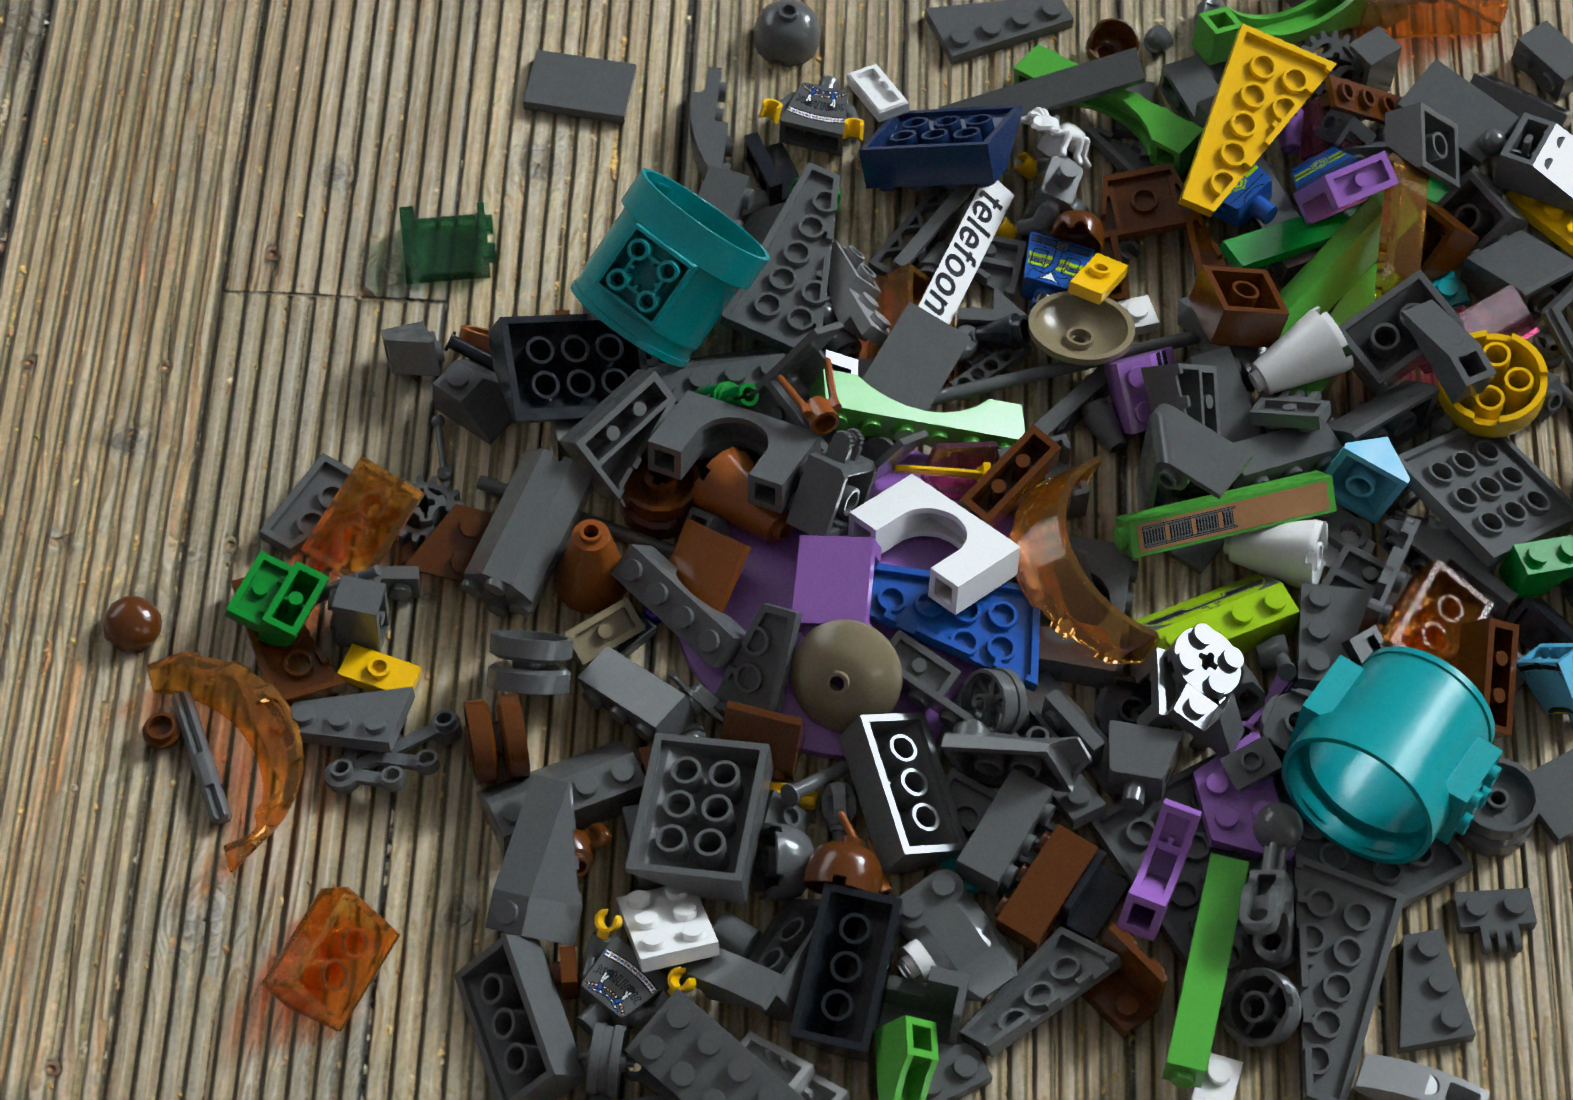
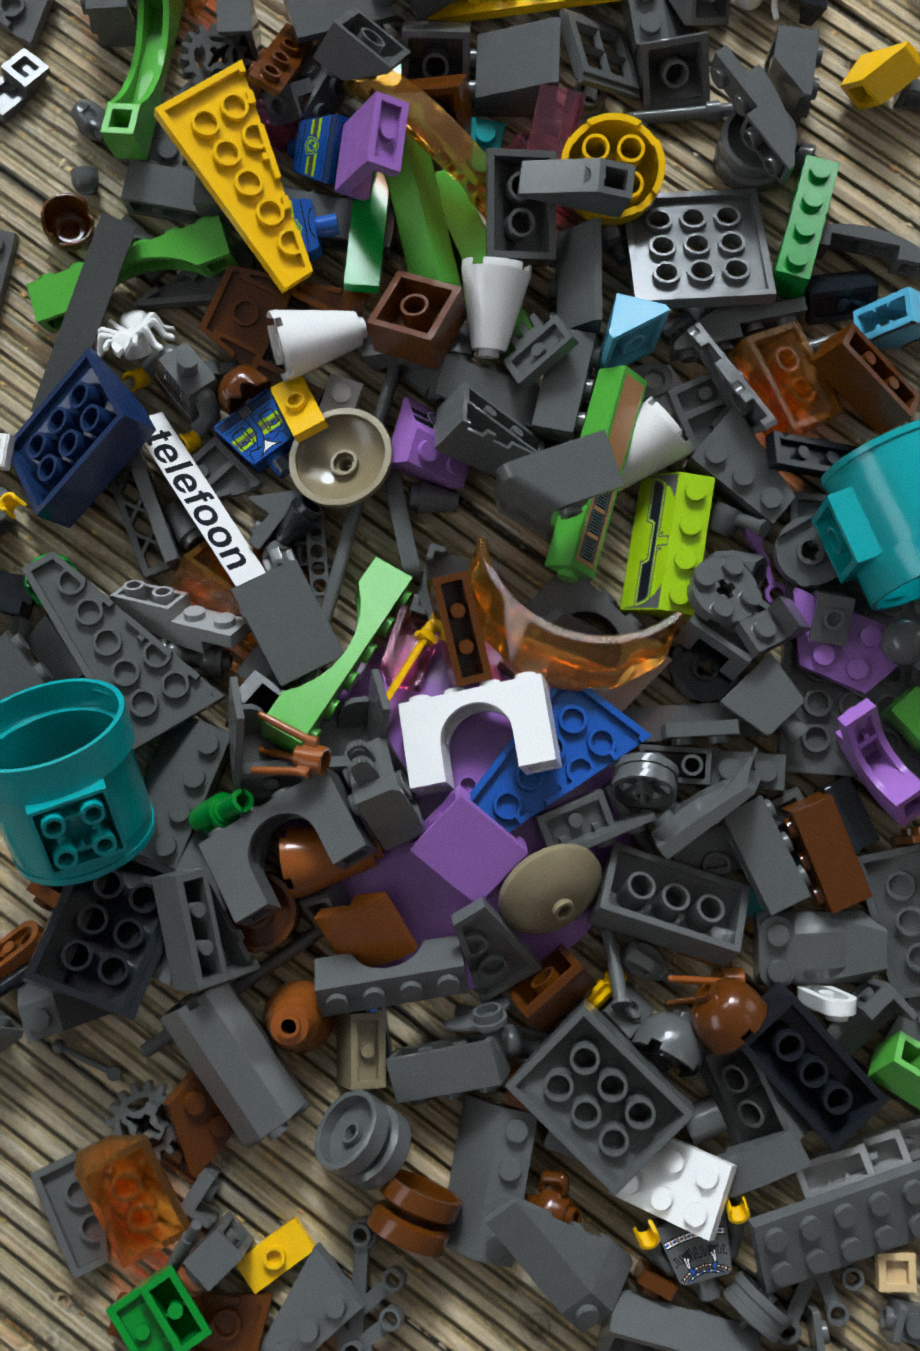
camera: 50 degrees left, 25 degrees up
(1160, 250) = (313, 338): none -> white cone

